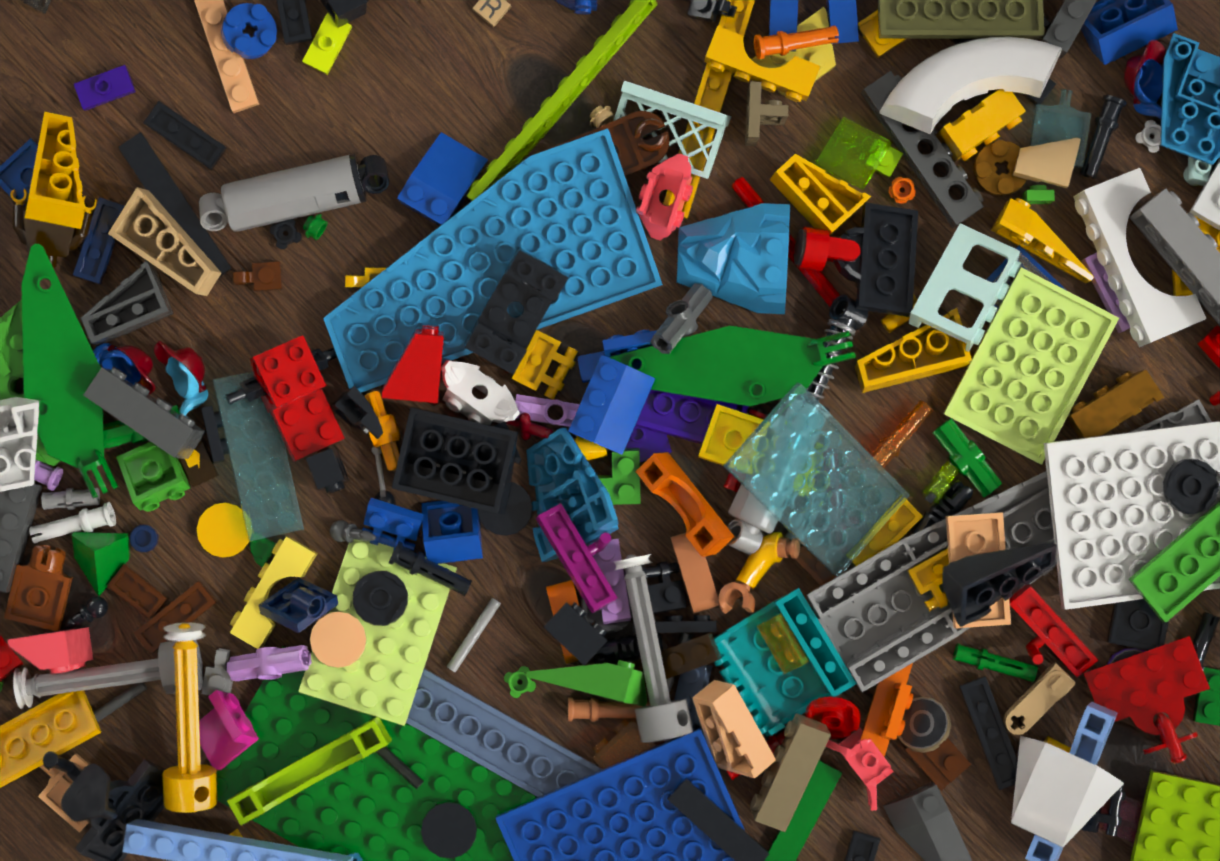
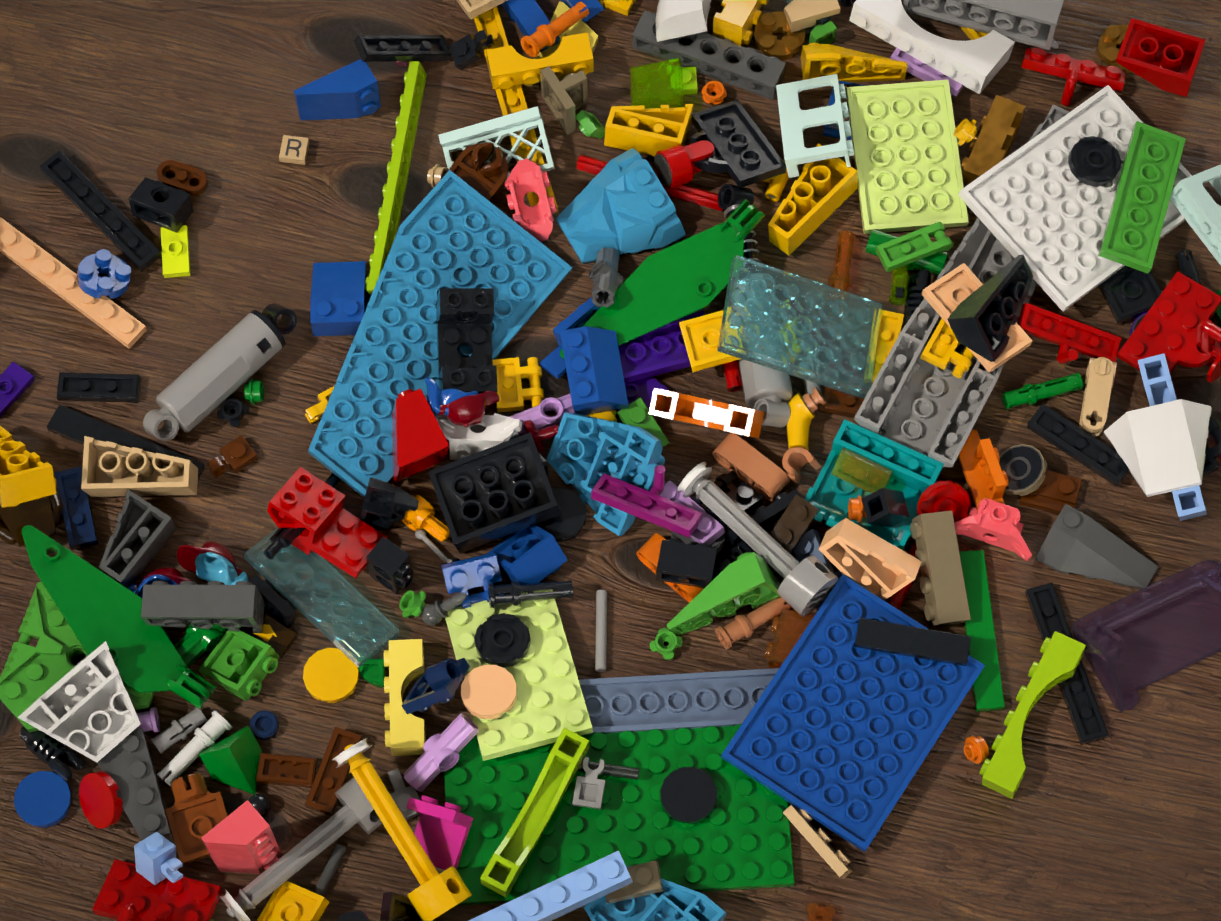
camera: 30 degrees left, 20 degrees down
(330, 511) = (412, 603): none -> bright green plate
(371, 774) = (589, 789): none -> light grey plate
(469, 370) = (459, 406): none -> dark red hair
(757, 673) = (856, 509): none -> orange plate
(769, 153) = (590, 125): none -> bright green plate
(779, 691) = (885, 507): none -> black brick
(971, 463) = (913, 246): none -> bright green plate
(1097, 380) = (965, 131): none -> yellow plate

